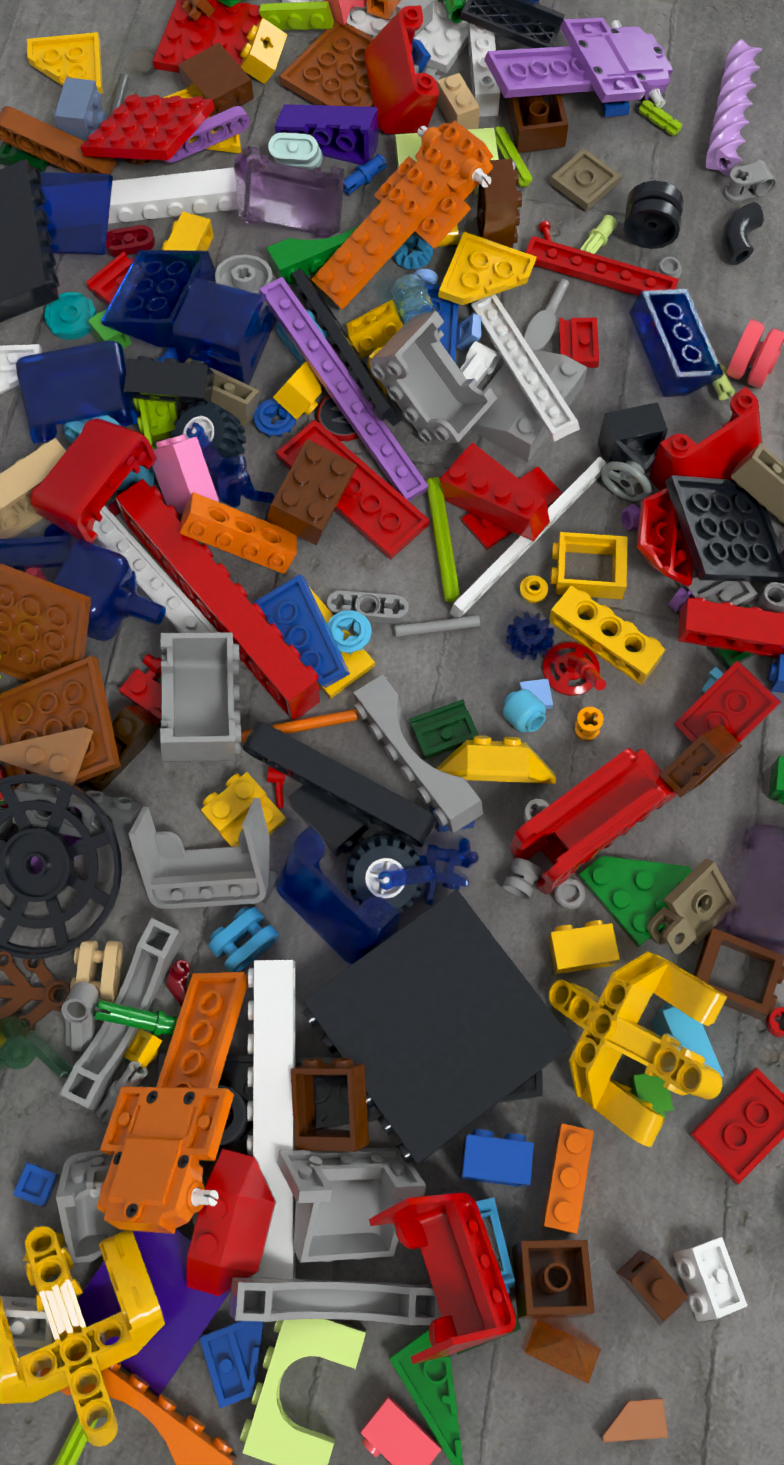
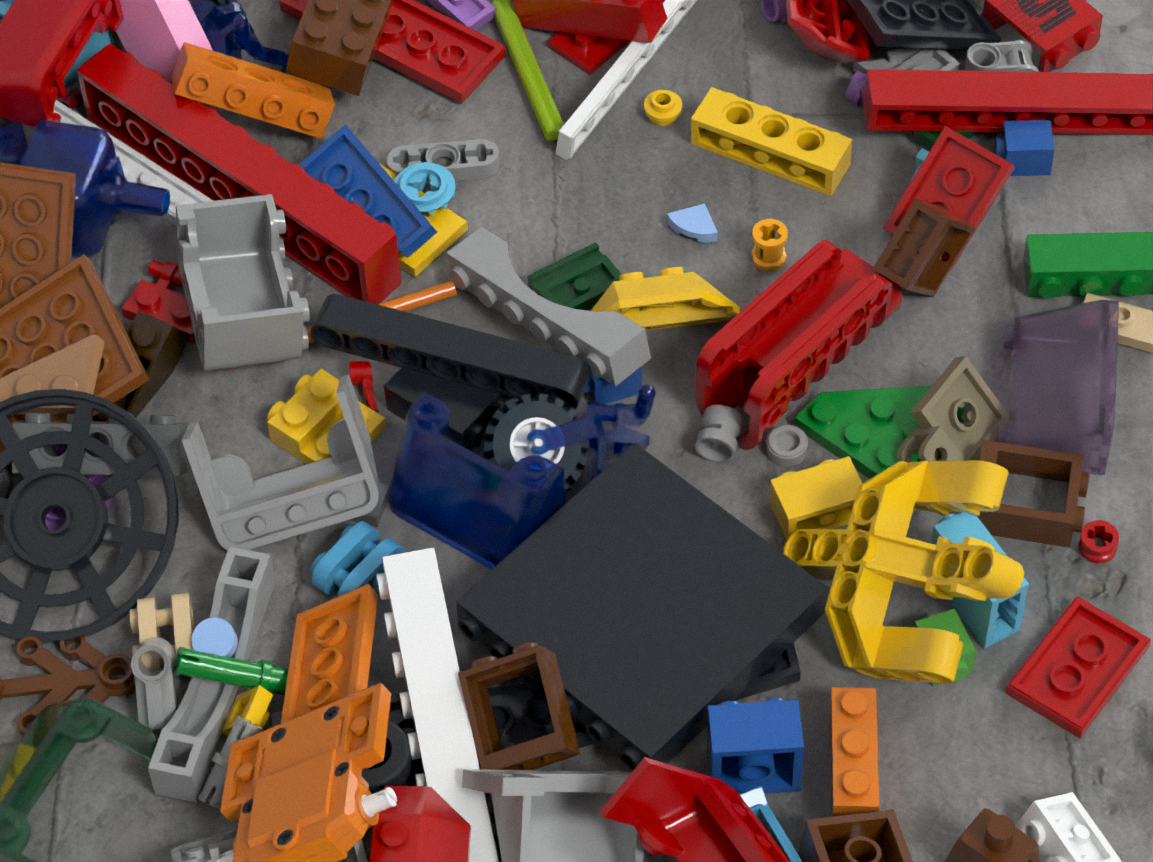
camera: 10 degrees left, 15 degrees down
(128, 990) = (215, 637): none -> light blue tile
(177, 979) = (277, 629): dark red arm -> none
(437, 626) = (542, 169): light grey bar -> none
(519, 633) = (669, 158): clear blue gear -> none
(524, 711) = (680, 243): medium azure head -> none
(574, 667) = (735, 189): red dish -> none
(591, 544) = (729, 42): yellow window -> none

